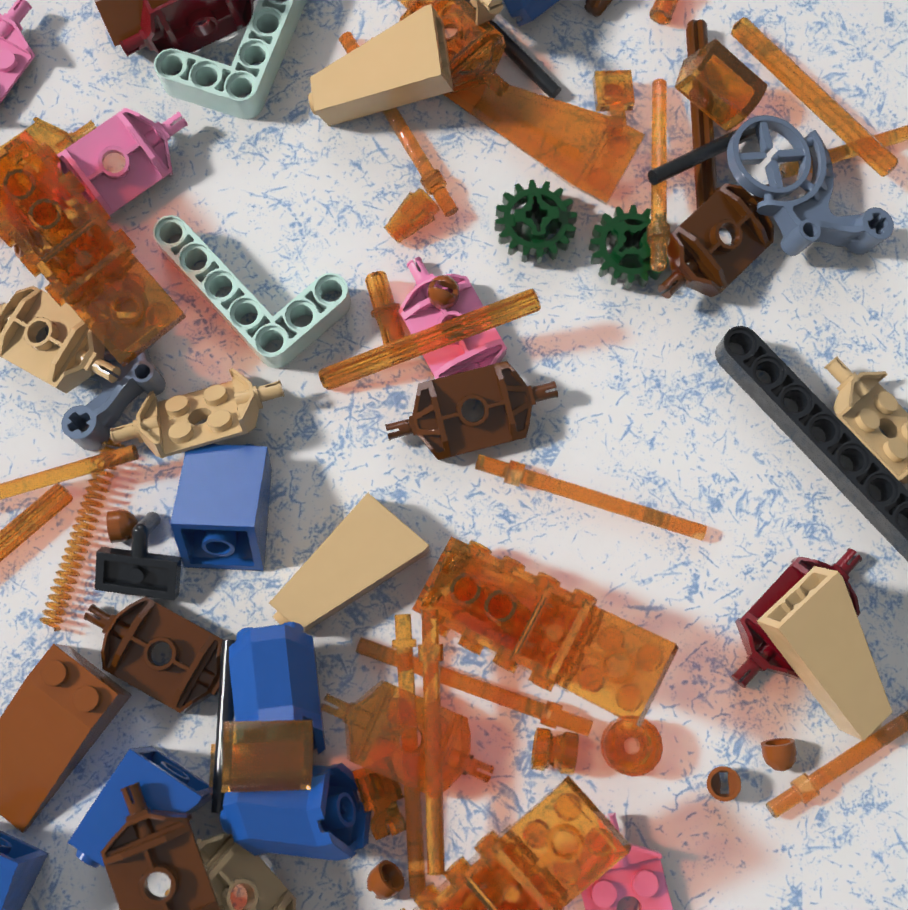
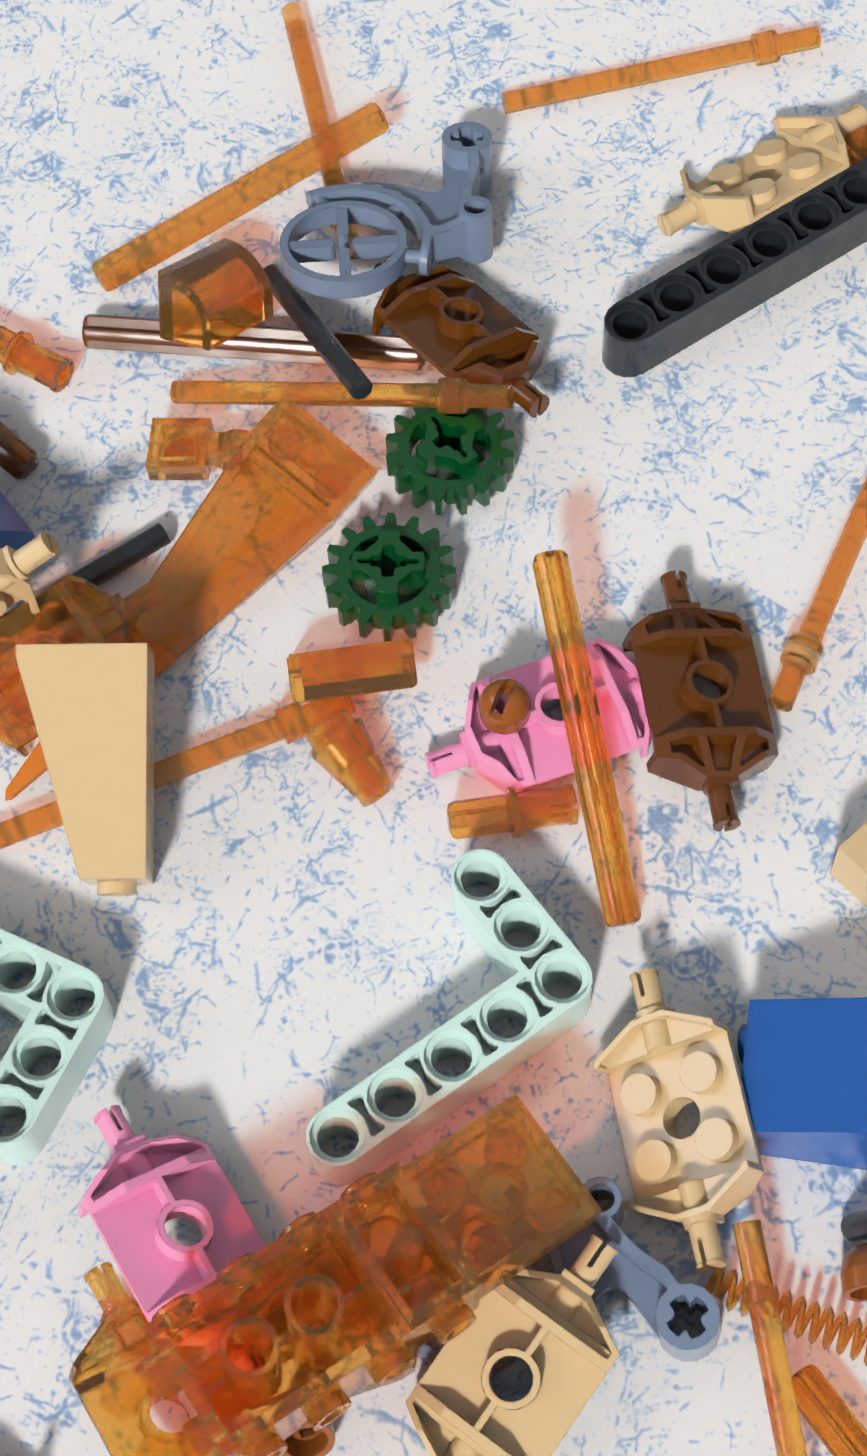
camera: 80 degrees left, 15 degrees down
(468, 208) = (352, 670): none -> clear orange slope

